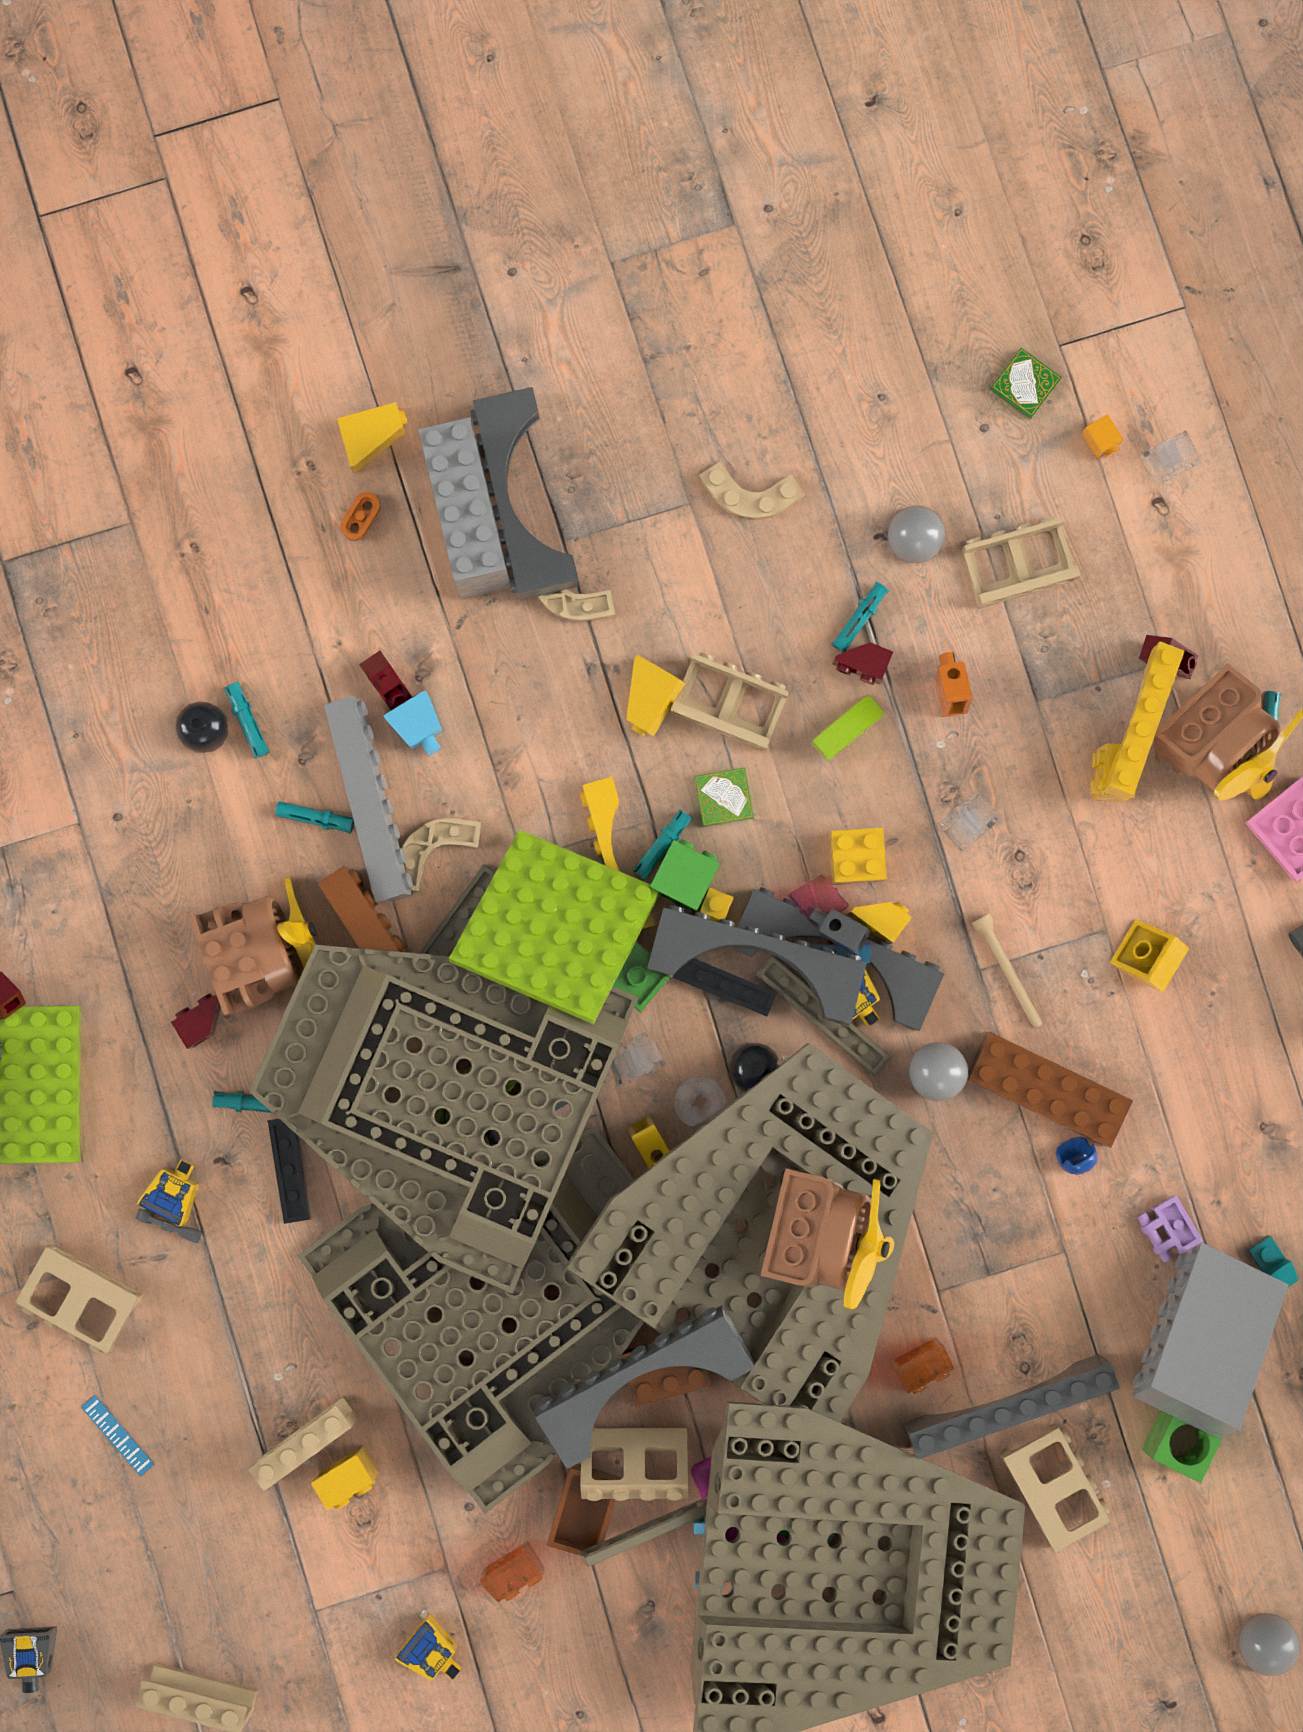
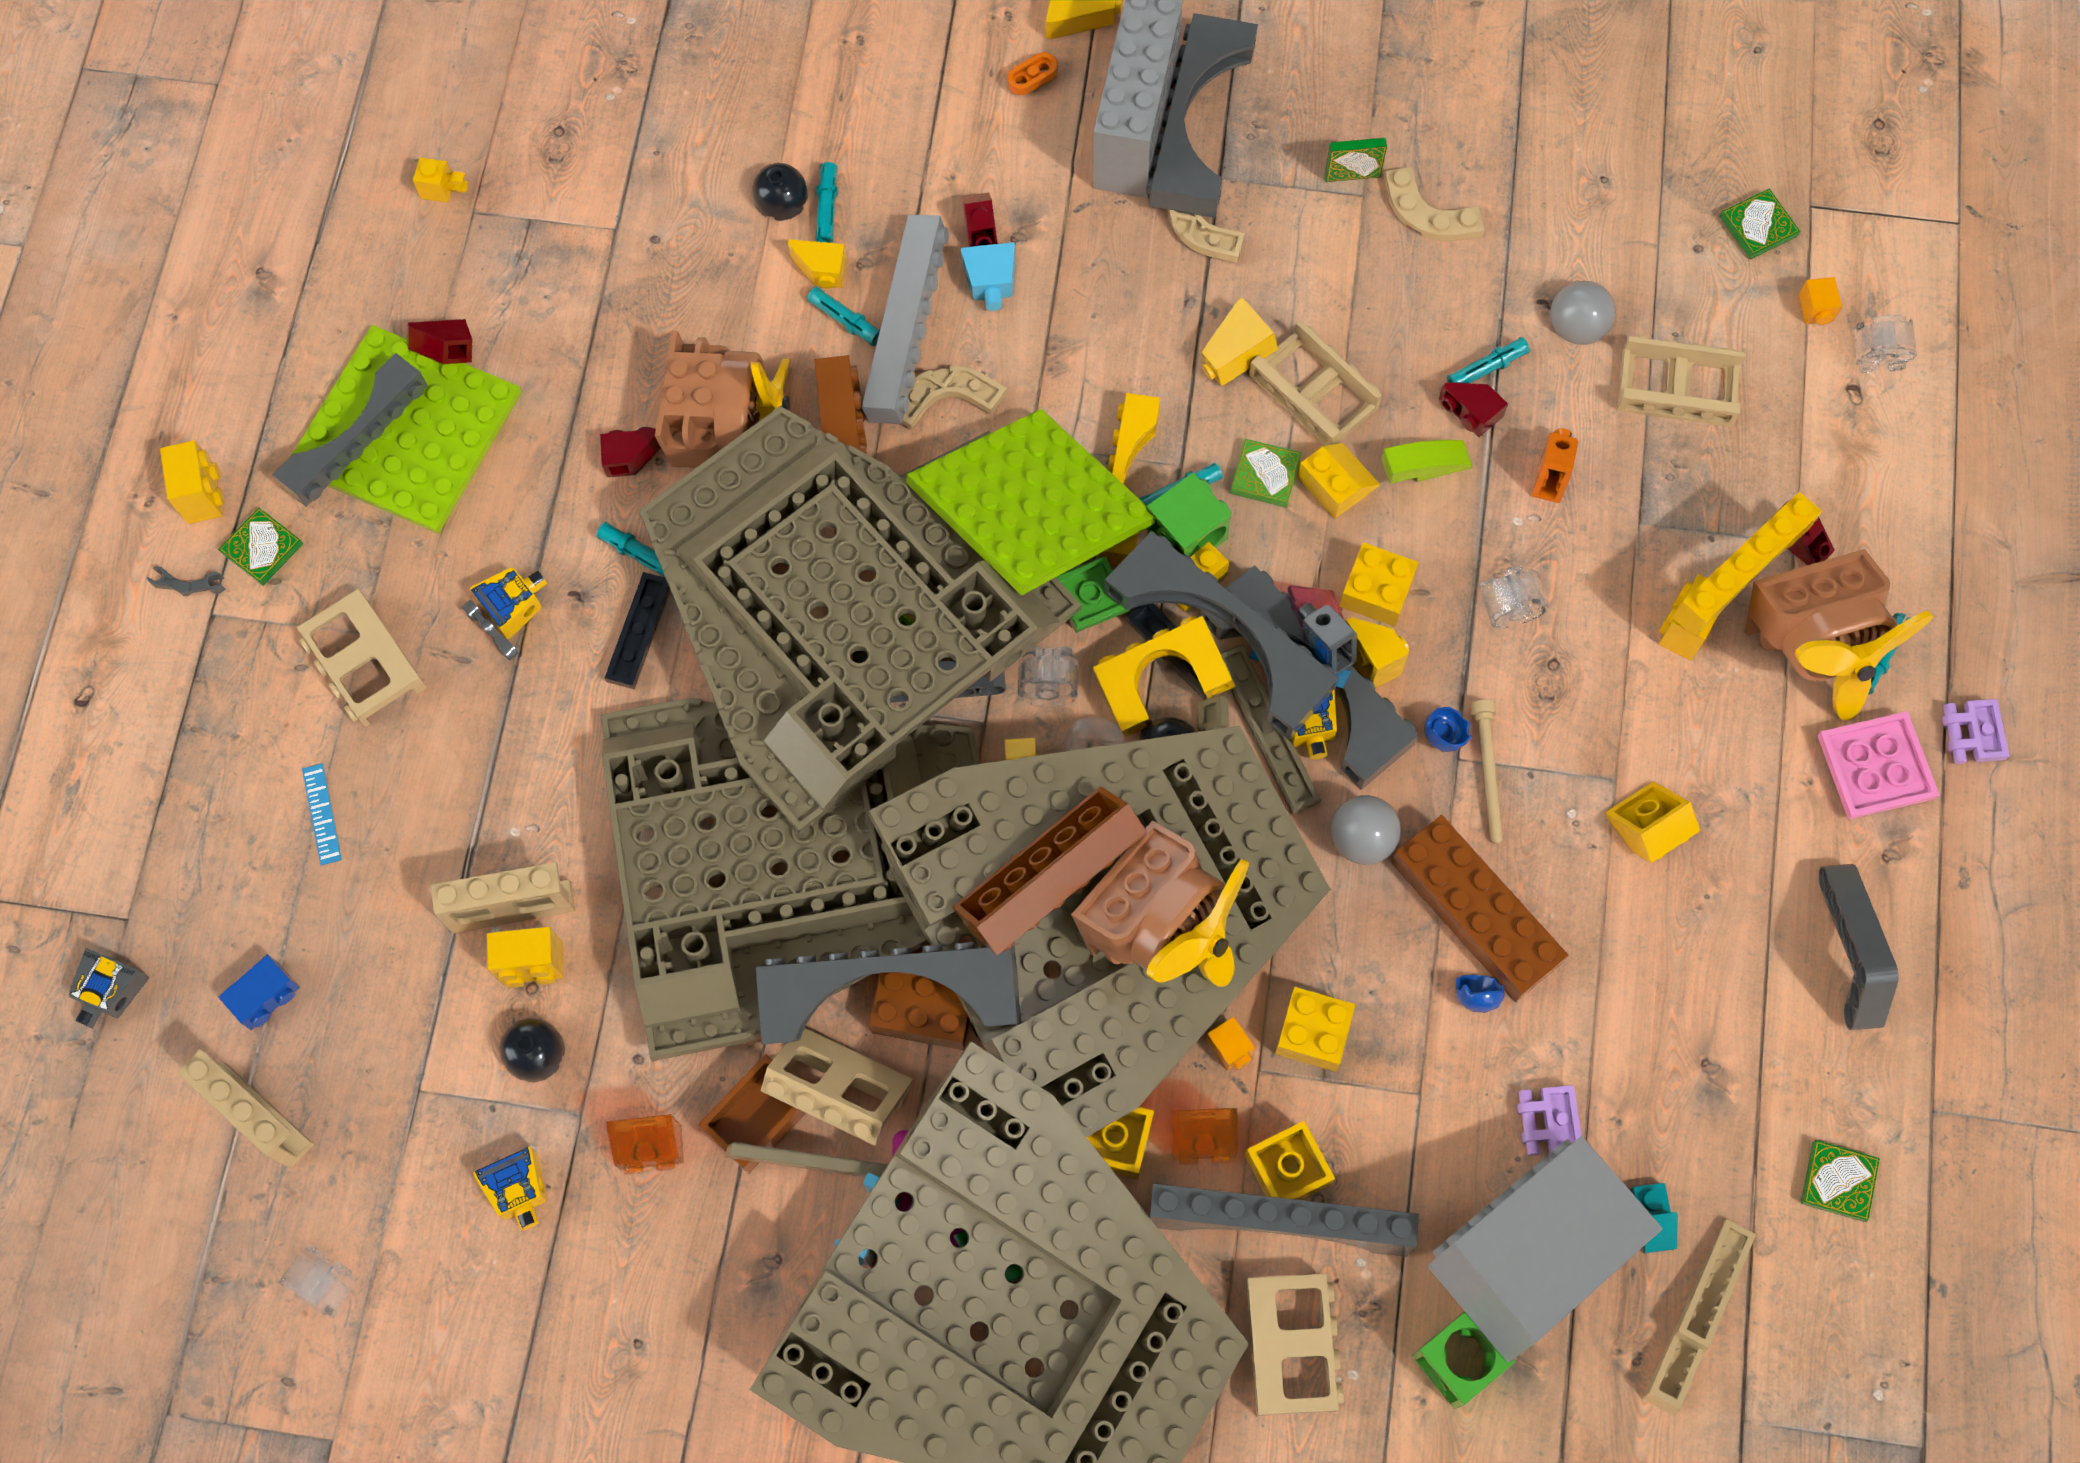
camera: 30 degrees right, 15 degrees down
(152, 1601) = (259, 992): none -> blue brick
(271, 778) = (820, 261): none -> yellow slope
(385, 1541) = (531, 1050): none -> black cylinder
(672, 481) = (1355, 159): none -> tile
(726, 1246) = (1050, 870): none -> dark orange brick
(736, 982) = (1121, 673): none -> yellow arch
(779, 1030) = (1213, 713): none -> dark tan plate
(784, 775) = (1336, 478): none -> yellow slope
(869, 1405) = (1124, 1142): none -> yellow brick
(911, 1285) = (1231, 1045): none -> light orange brick
(963, 954) = (1447, 729): none -> blue hair
(968, 1244) = (1315, 1029): none -> yellow brick
(996, 1360) = (1290, 1164): none -> yellow brick

